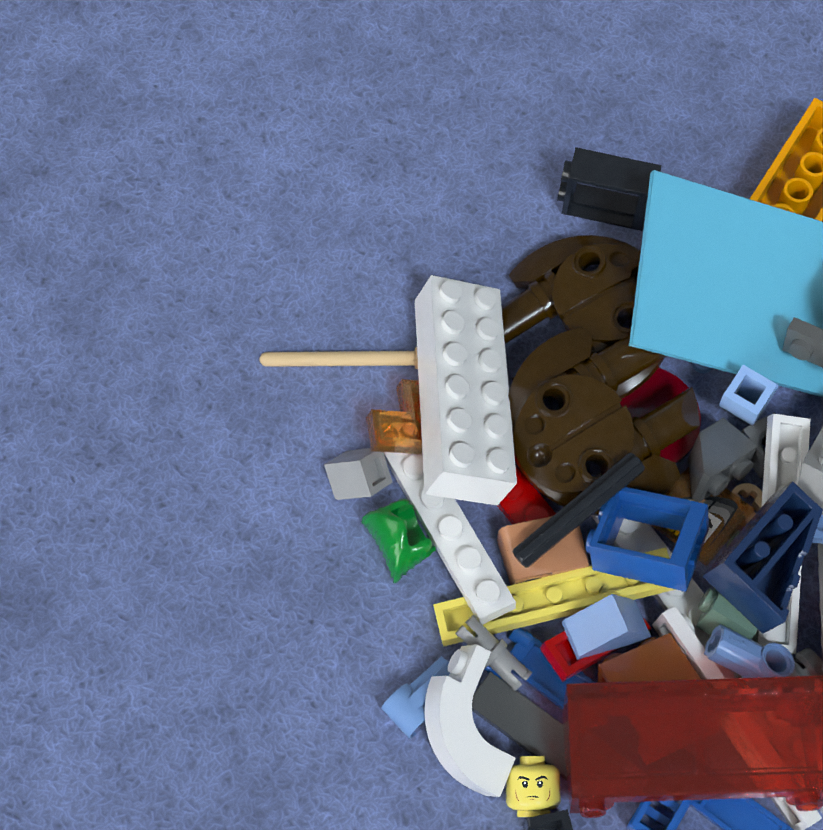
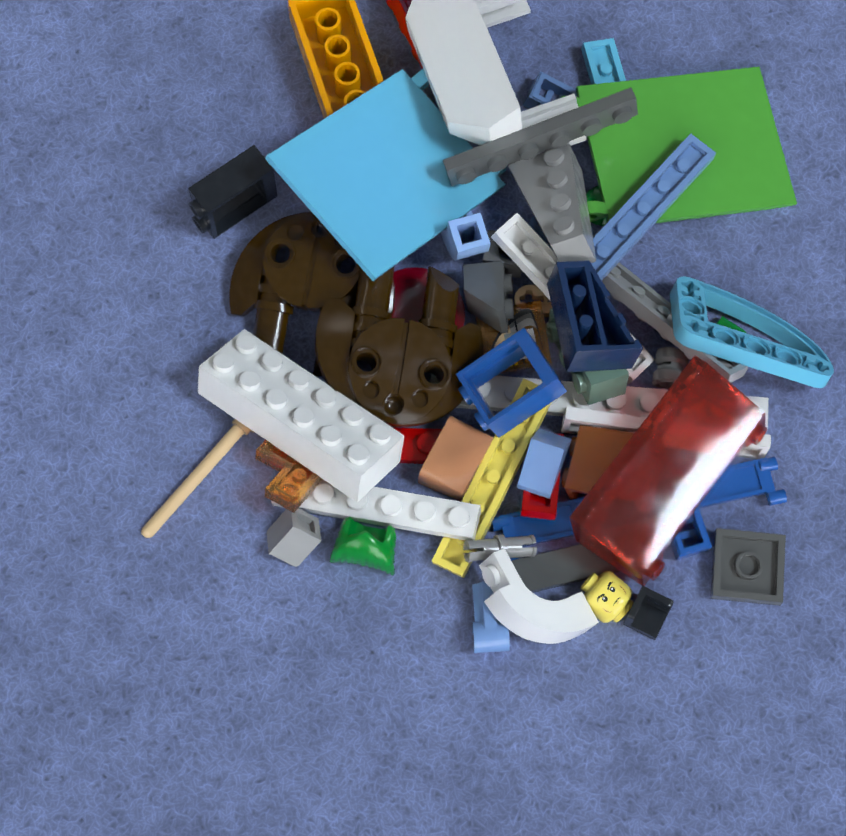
camera: 50 degrees left, 5 degrees up
(578, 510) = (454, 412): black axle -> none
(748, 656) = (639, 390): medium blue piece -> none

